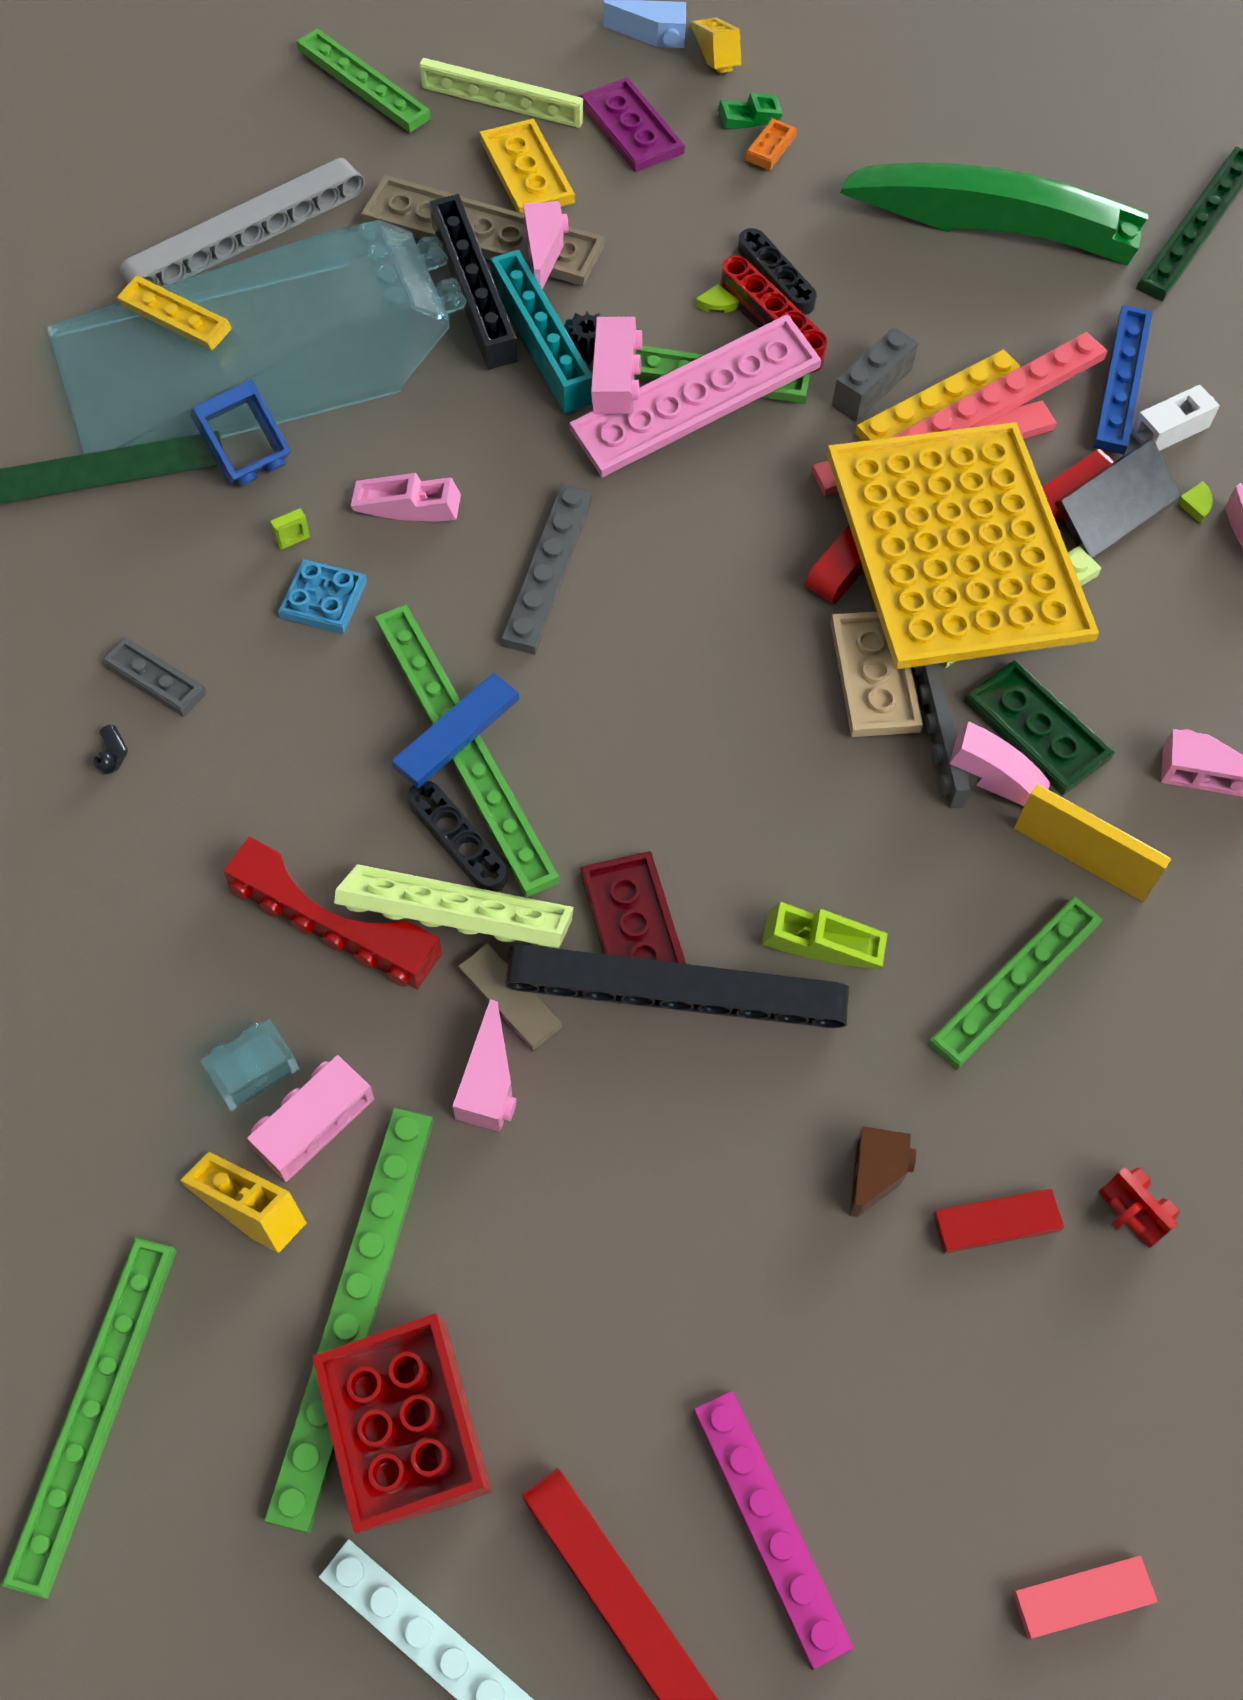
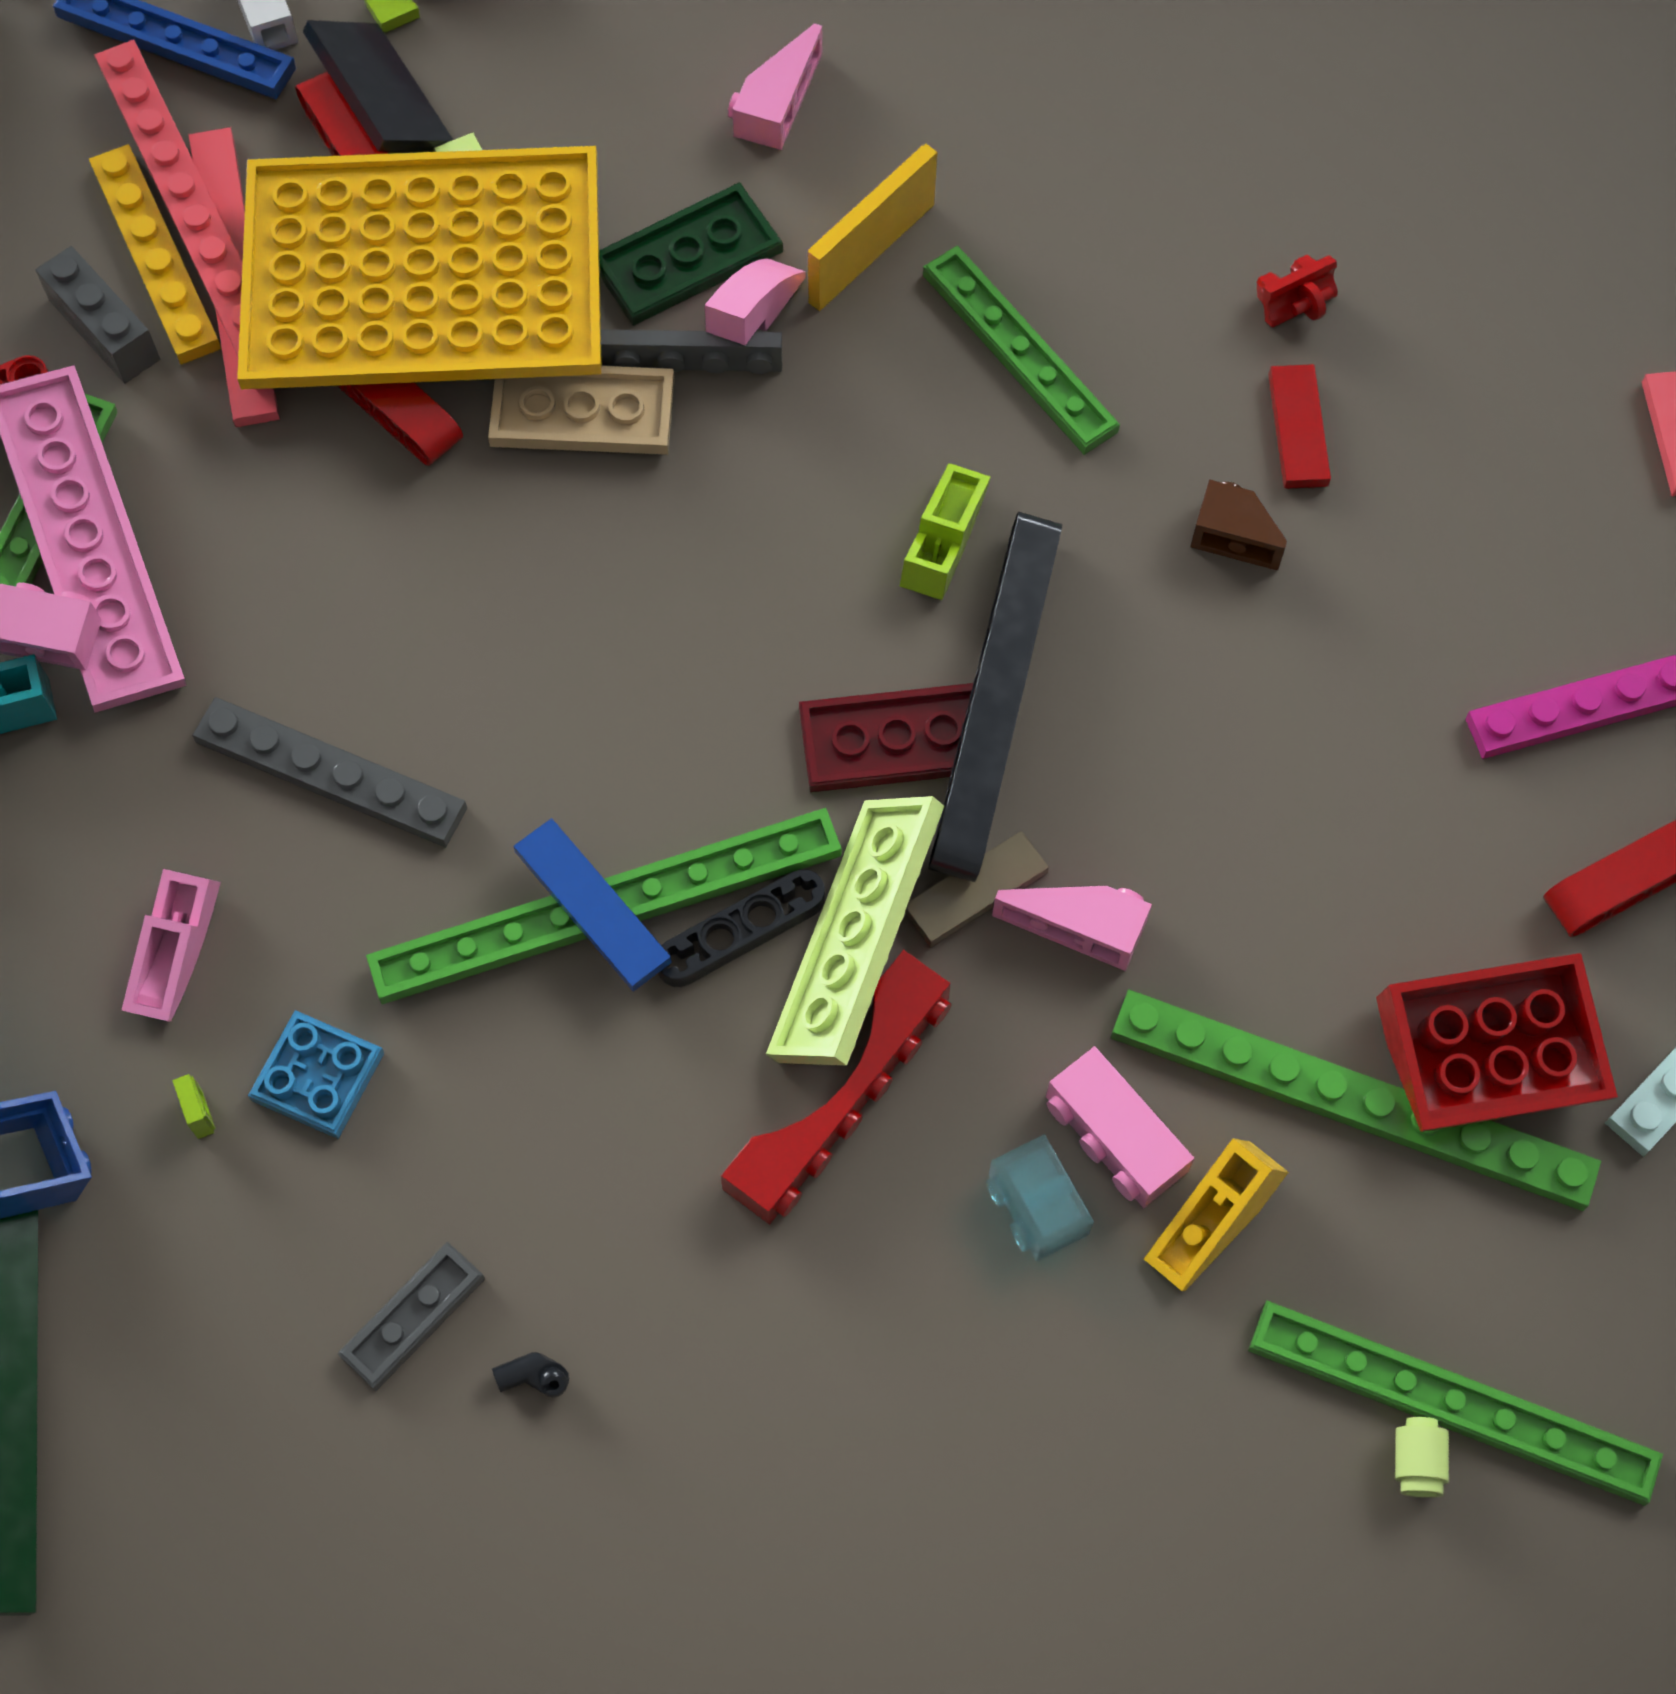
camera: 80 degrees left, 5 degrees up
(39, 1380) = (1422, 1457): none -> yellowish green brick

